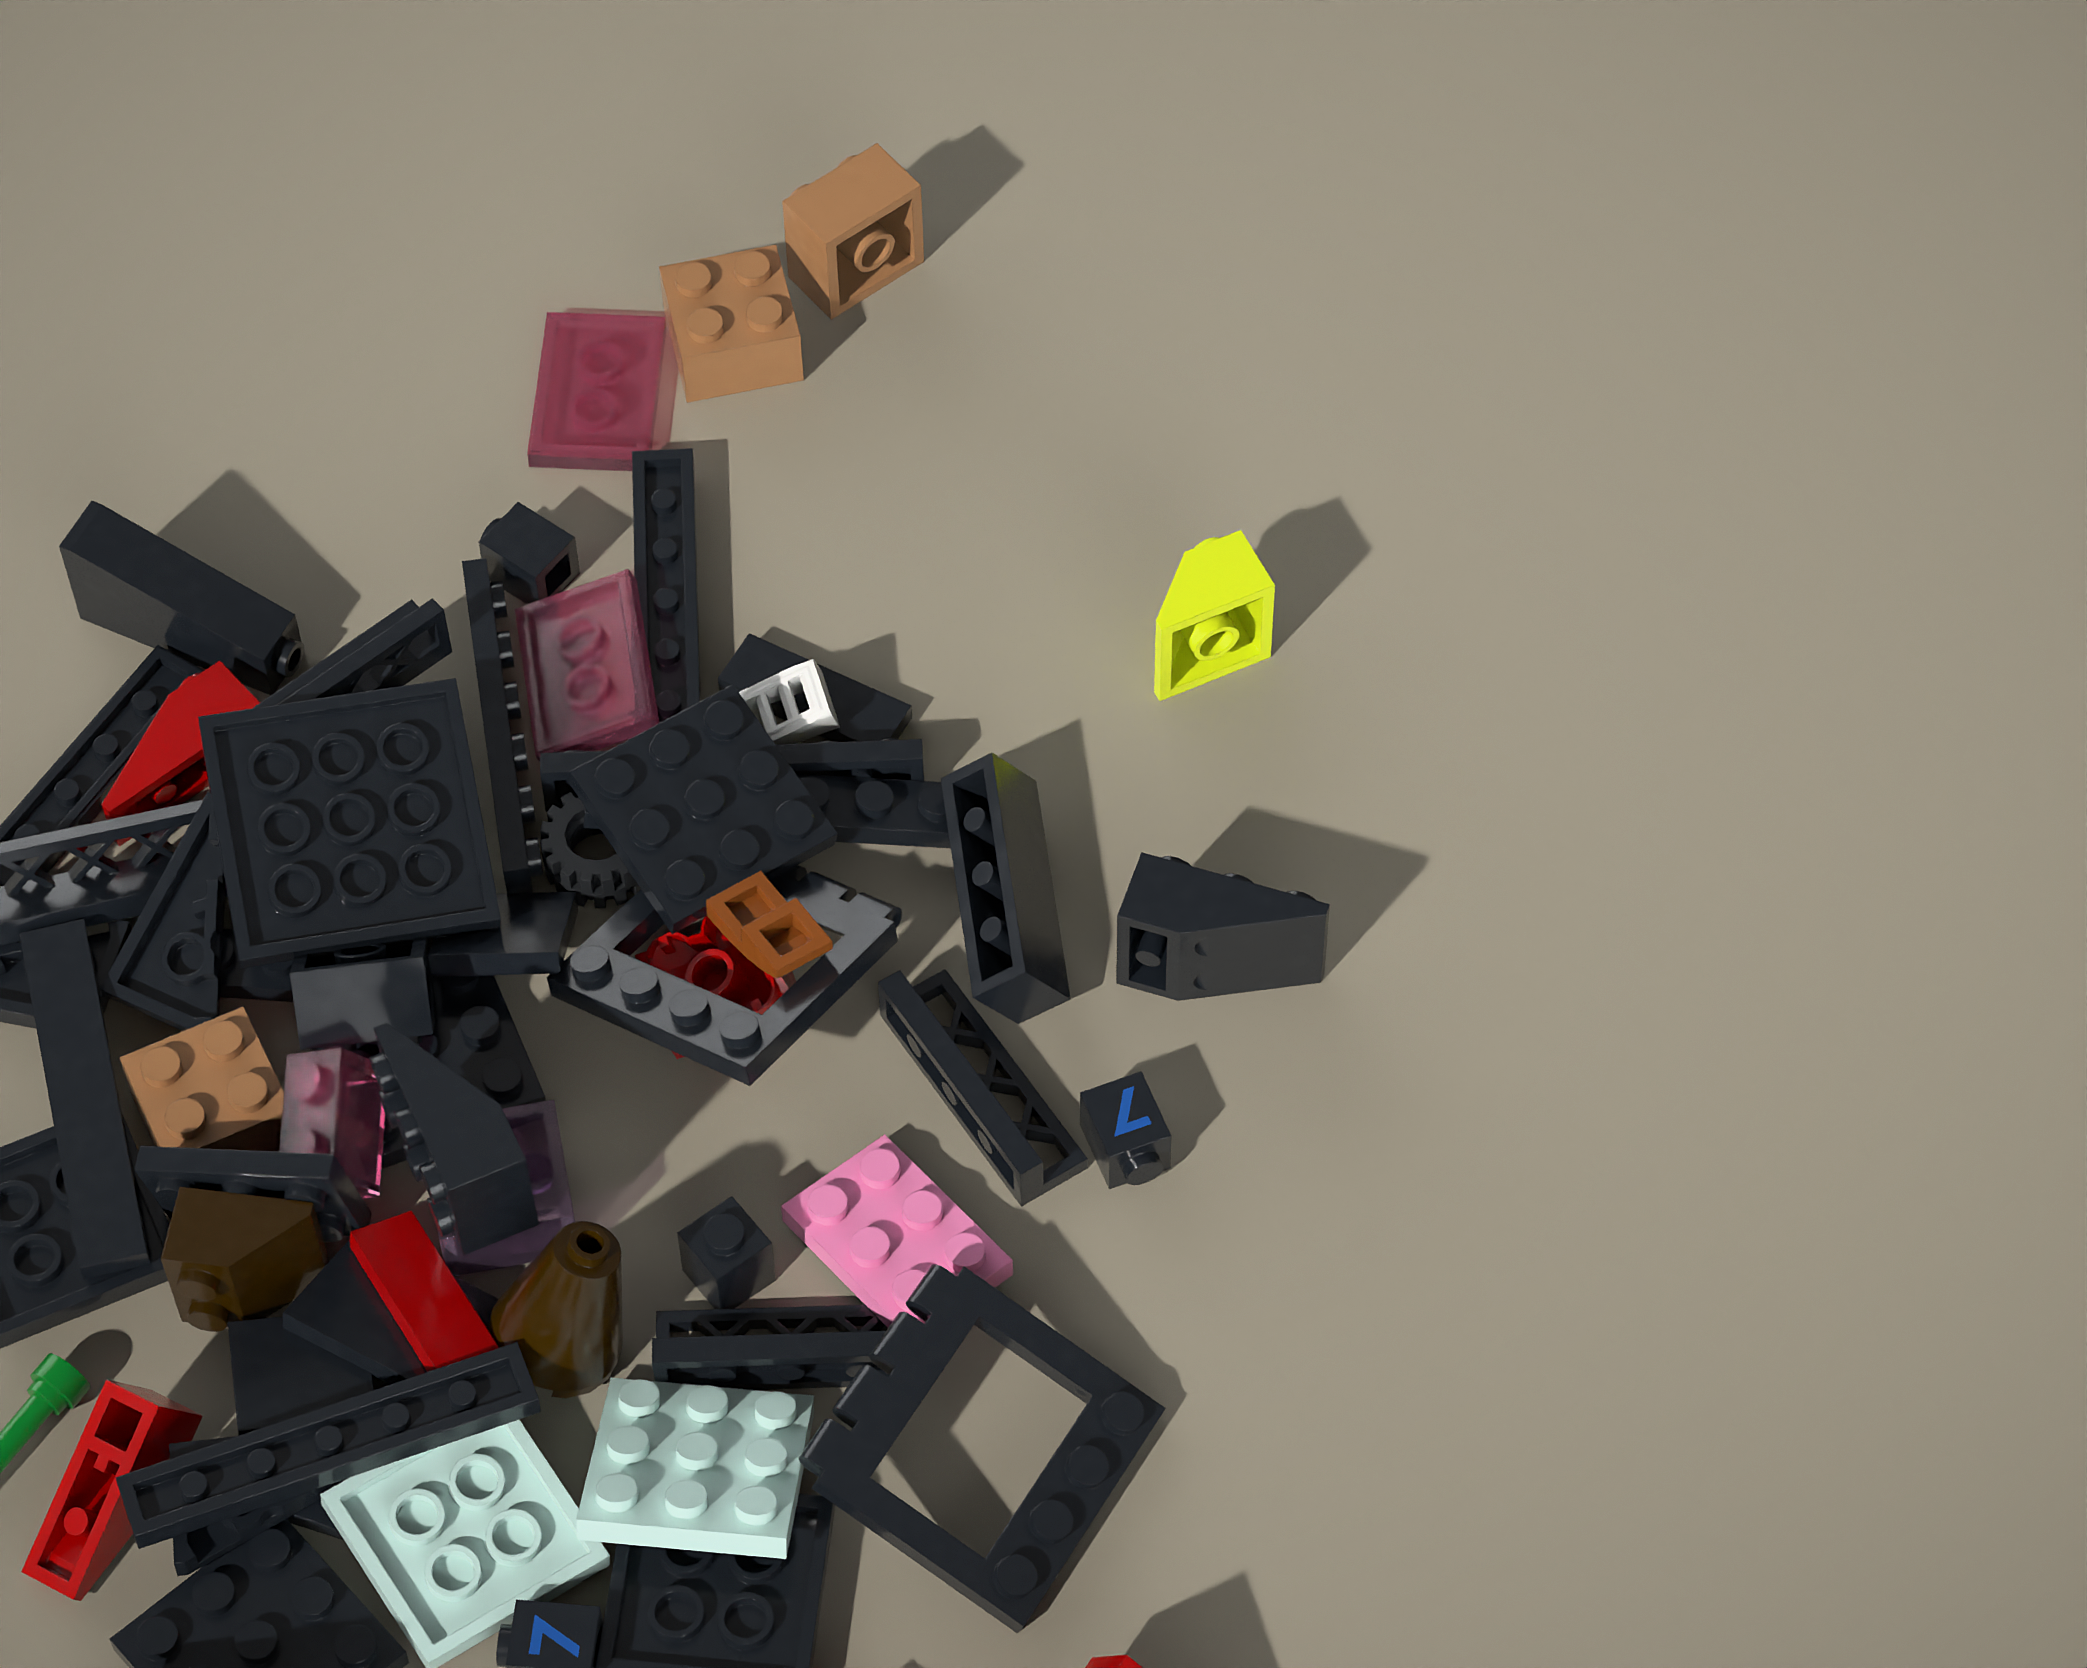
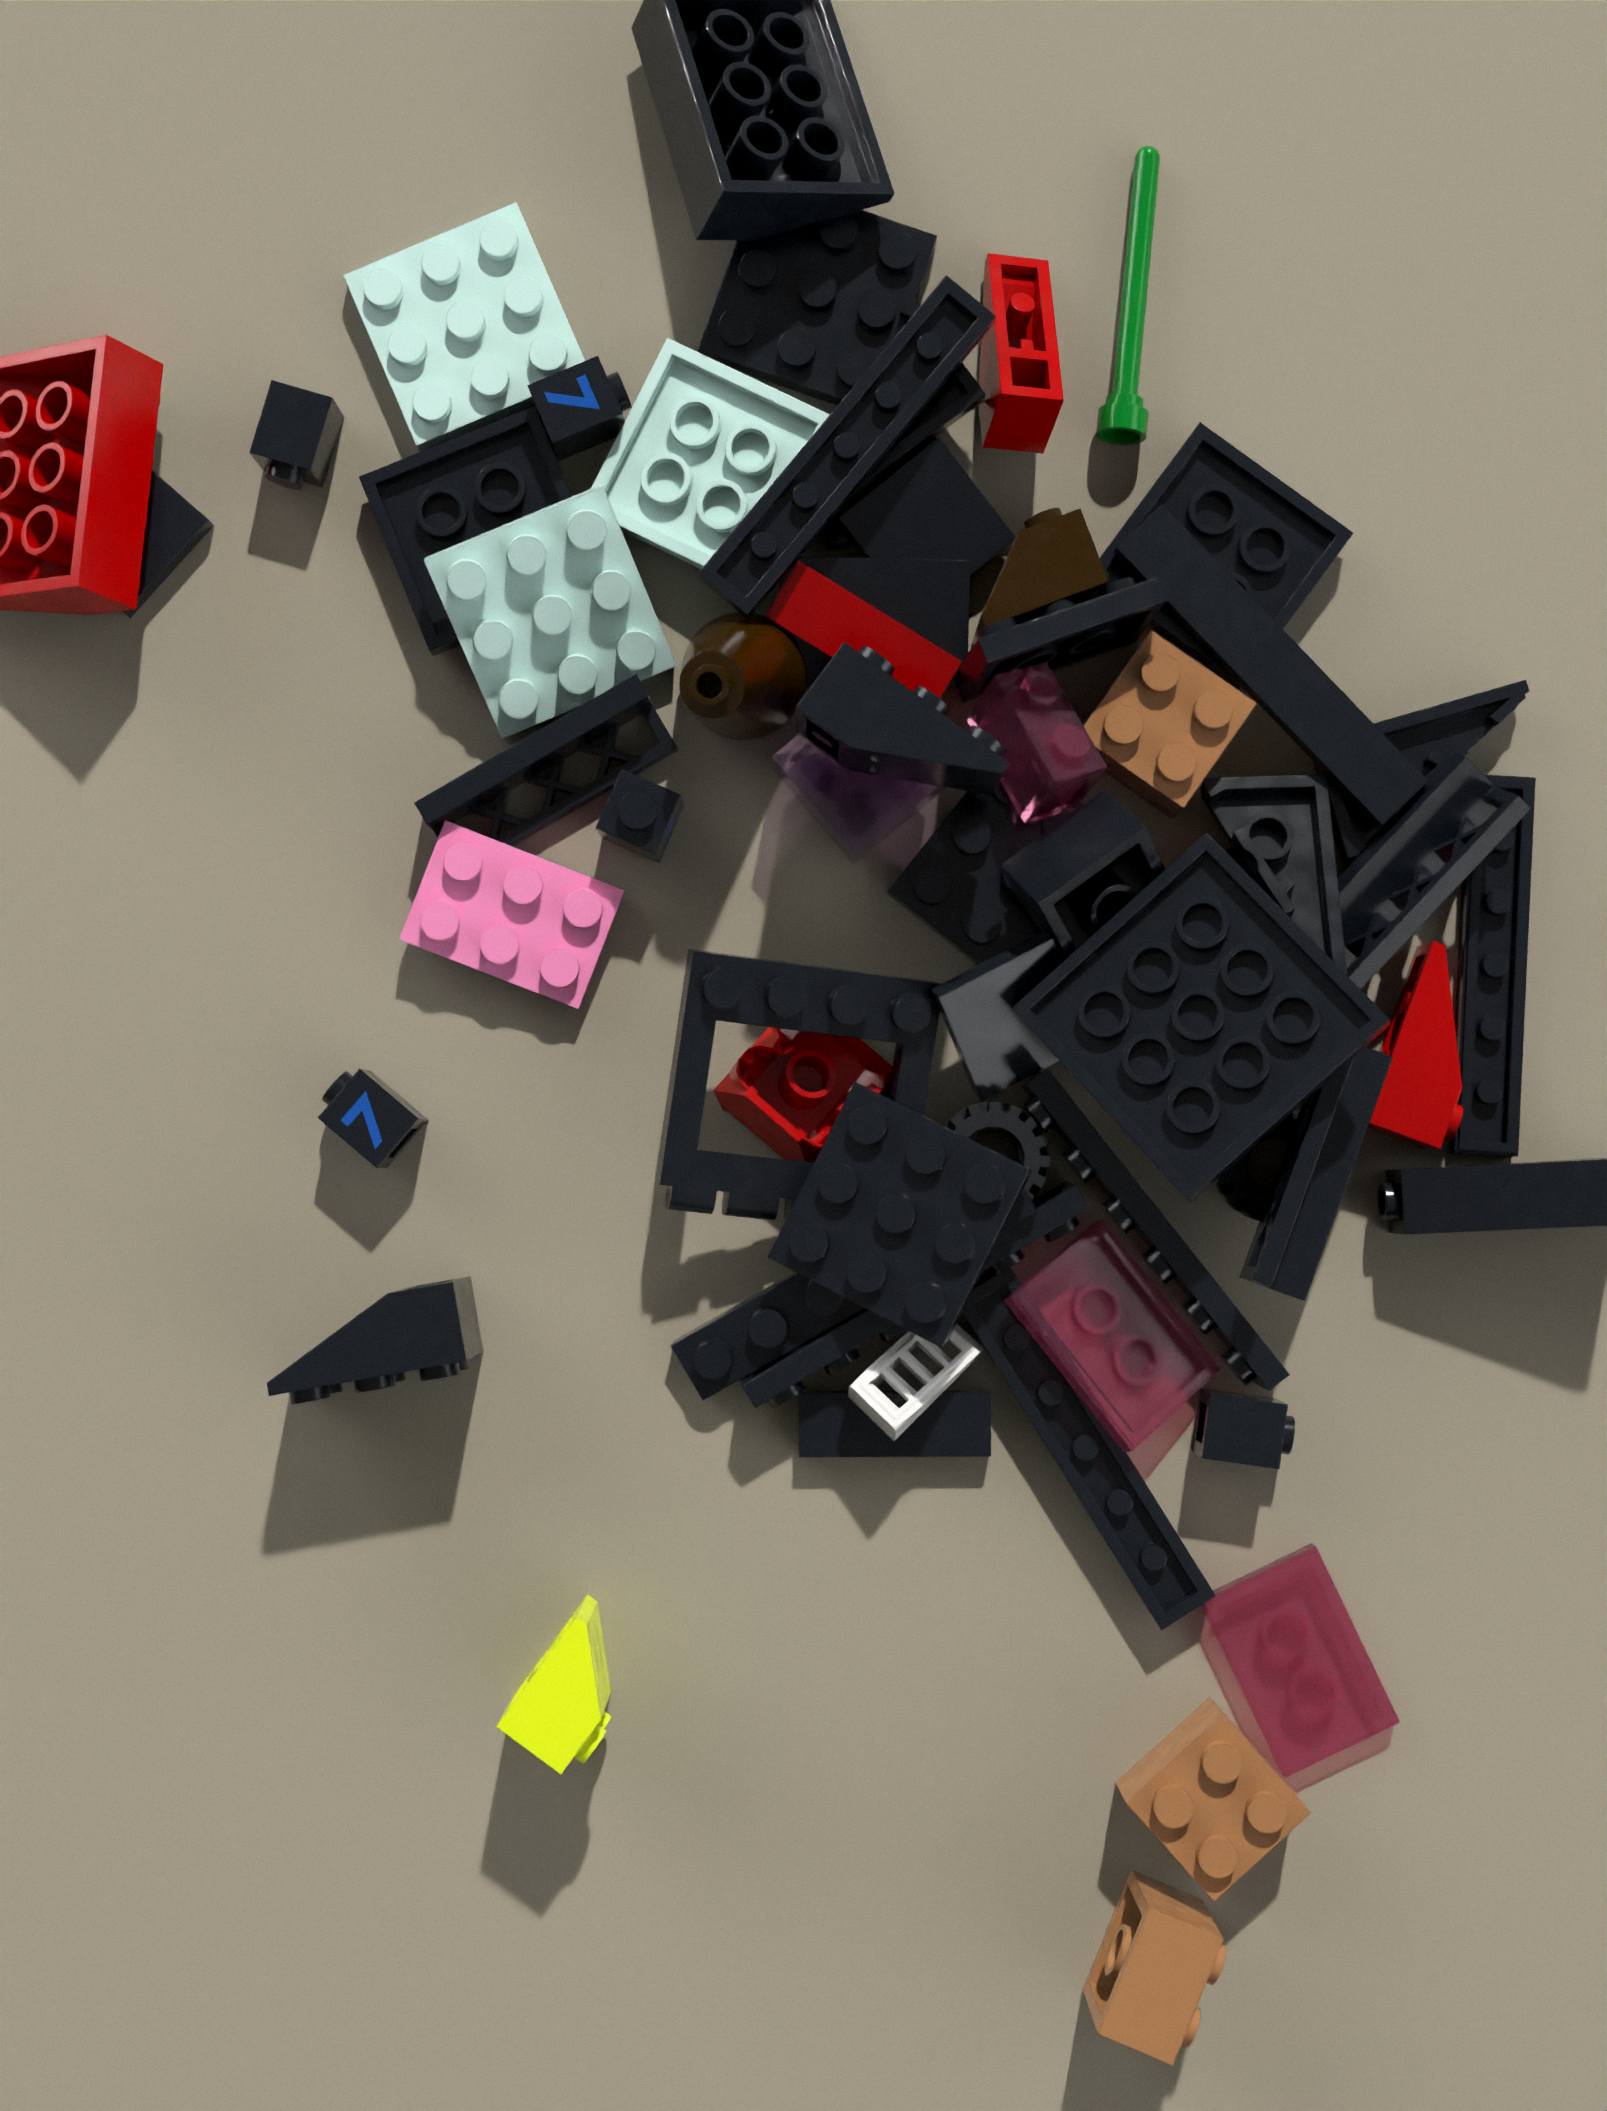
camera: 150 degrees right, 30 degrees up
(766, 927) = (764, 1116): dark orange slope -> none
(970, 1093) = (536, 1085): black fence -> none
(1005, 889) = (599, 1296): black brick -> none
(1062, 1499) = (412, 783): black hinge -> none

